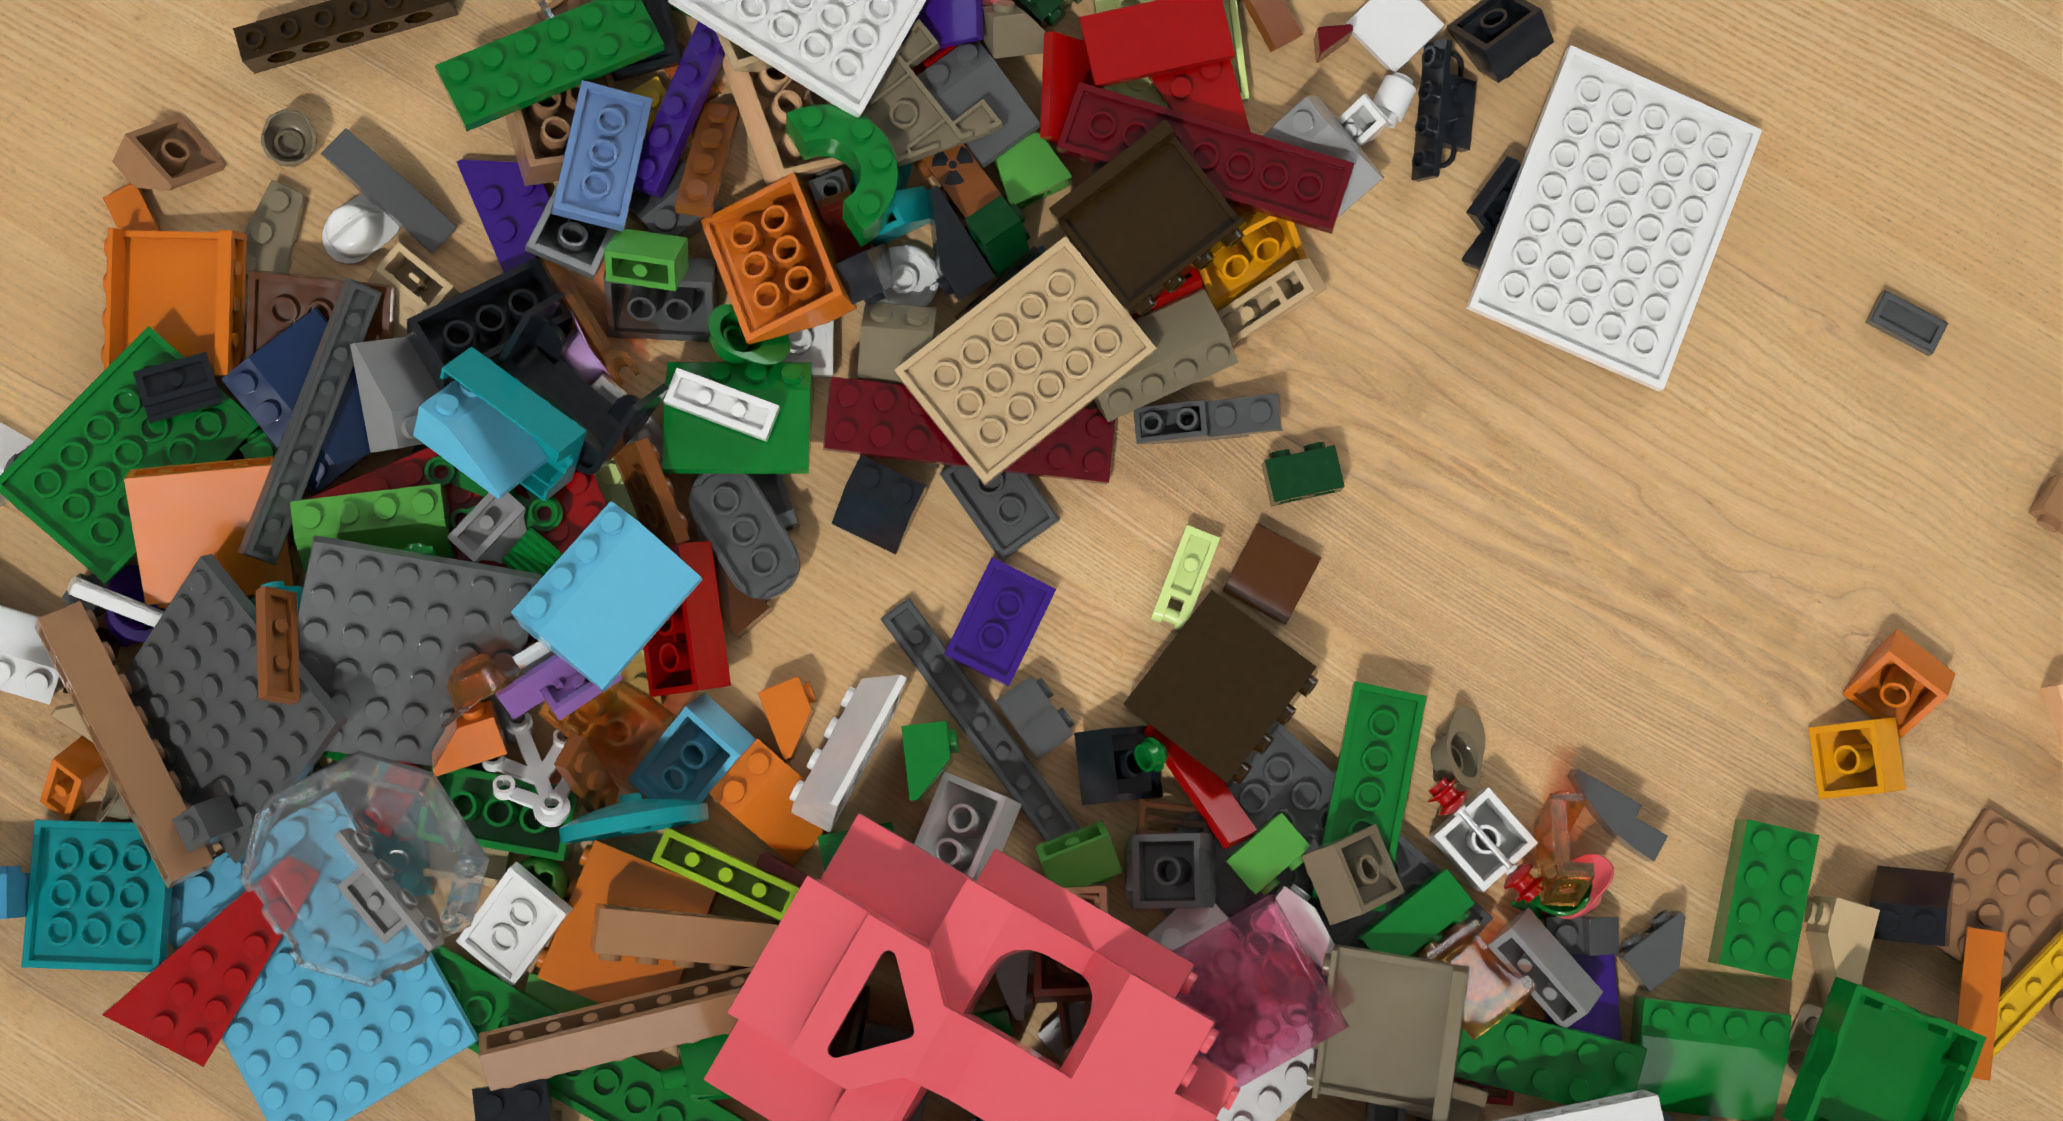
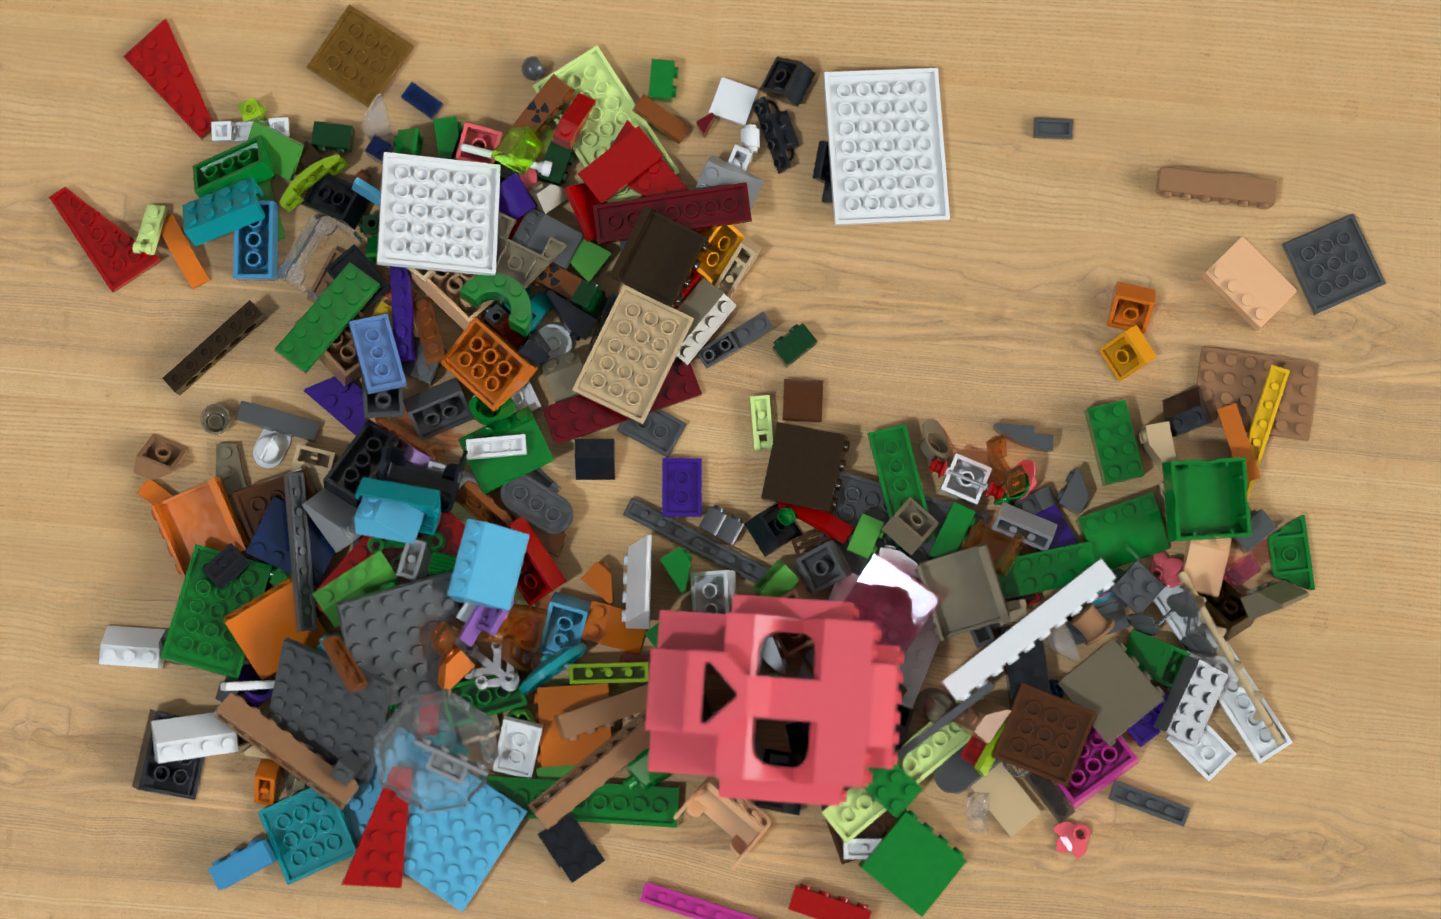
camera: 20 degrees left, 0 degrees up
(646, 259) = (424, 394): bright green brick -> none

